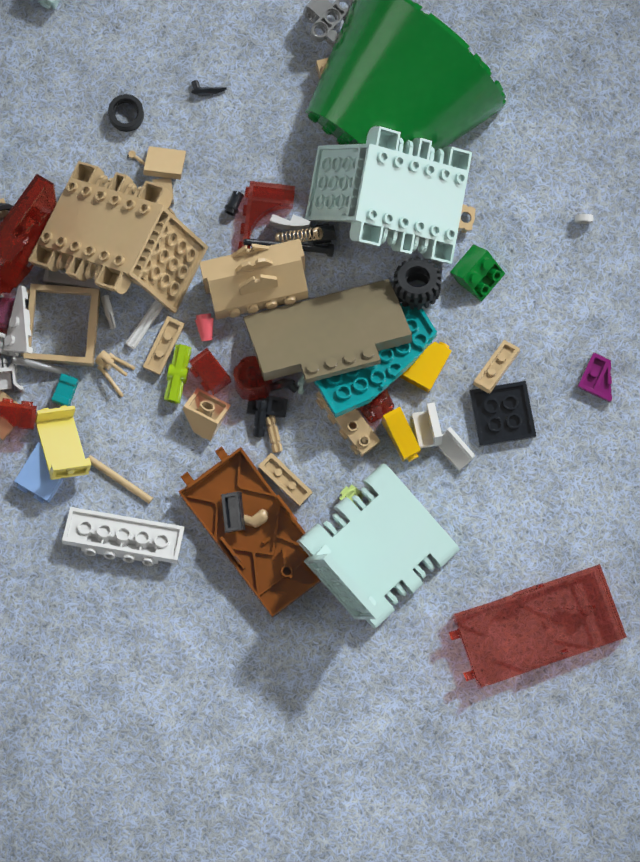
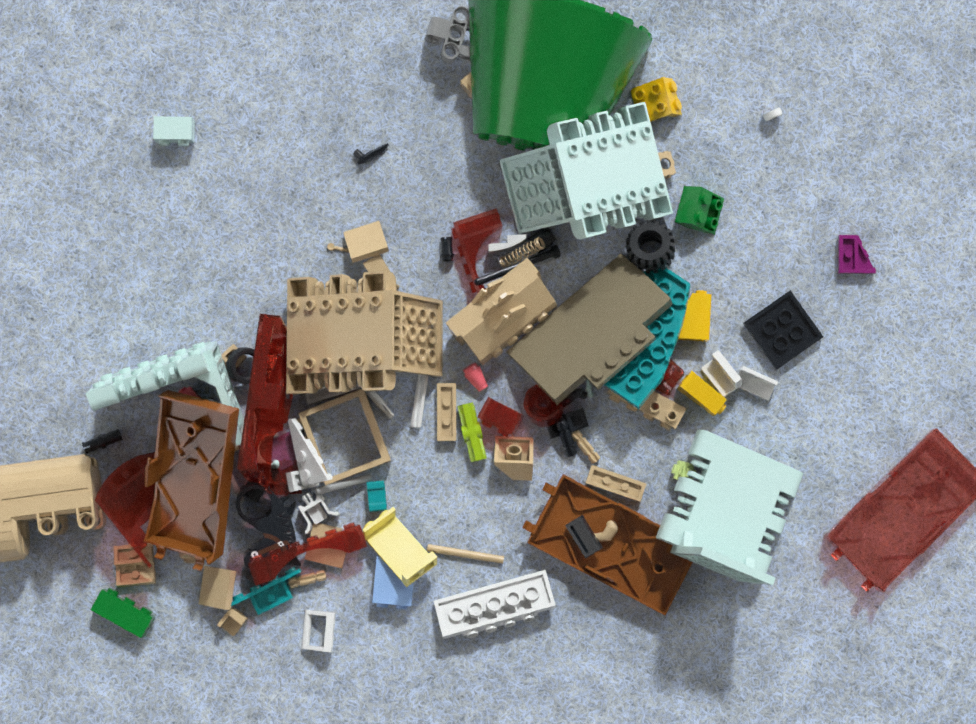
camera: 20 degrees left, 5 degrees up
(107, 361) = (401, 451): tan plant -> none
(126, 98) = (307, 196): black tyre -> none
(487, 158) = (659, 98): none -> yellow bracket
(496, 366) = (758, 289): tan plate -> none

